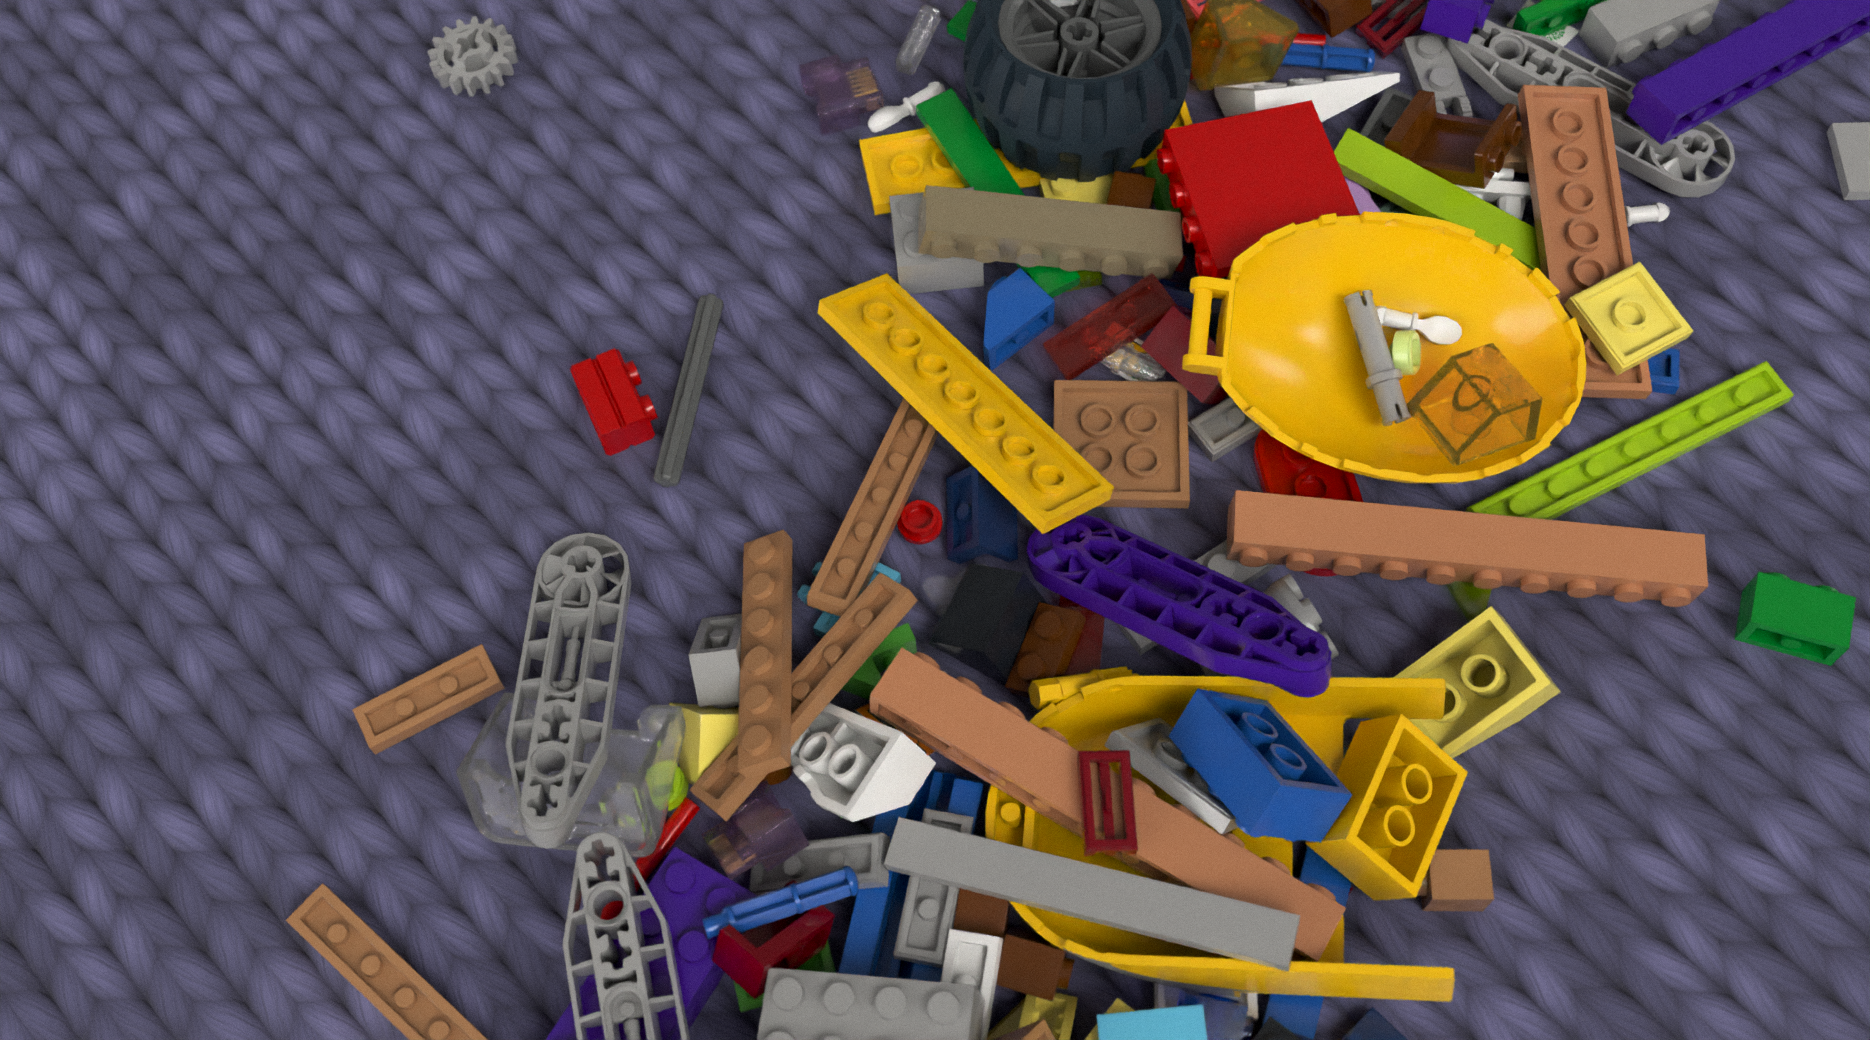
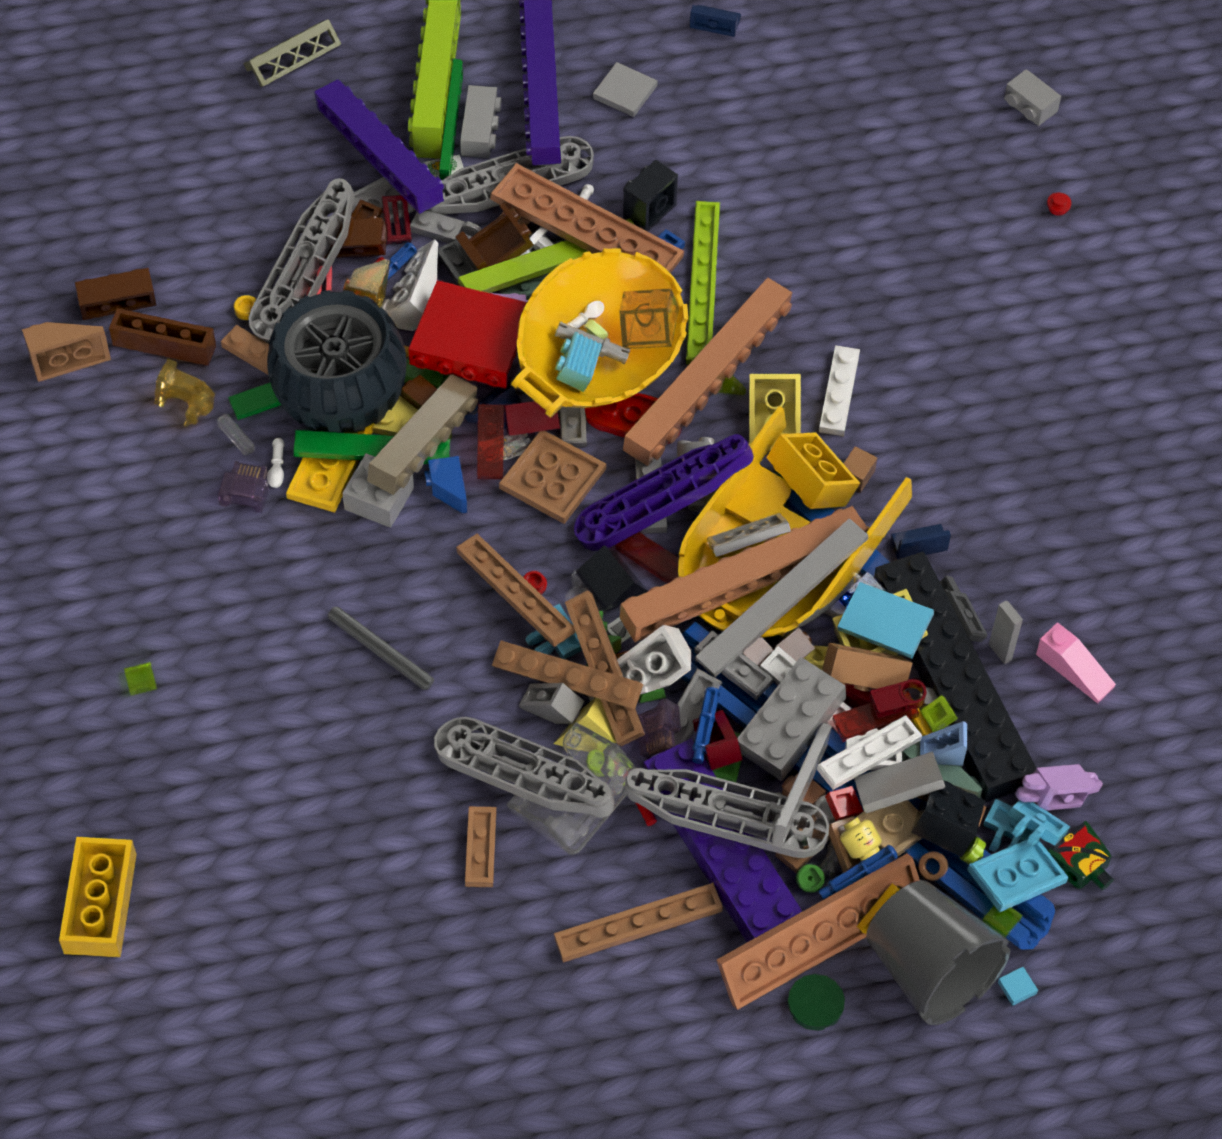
camera: 65 degrees left, 5 degrees down
(108, 280) = (98, 897): none -> yellow brick
(473, 56) = (81, 642): light grey gear -> none
(480, 148) = (140, 678): none -> clear neon green tile
(613, 401) = (365, 684): red brick -> none
(966, 403) = (484, 524): yellow plate -> none
(979, 519) = (548, 556): dark blue panel -> none
(1046, 647) = (643, 564): reddish brown plate -> none
(1057, 689) = (670, 565): yellow piece -> none
(1109, 844) = (748, 566): dark red tile -> none
(1259, 767) = (768, 500): blue brick -> none
(1321, 355) = (578, 361): none -> medium azure brick
(1591, 767) = (839, 391): none -> white plate
(1628, 318) = (644, 234): light yellow tile -> none
(1717, 286) = (650, 195): none -> black brick
(1795, 618) = (824, 273): green brick -> none

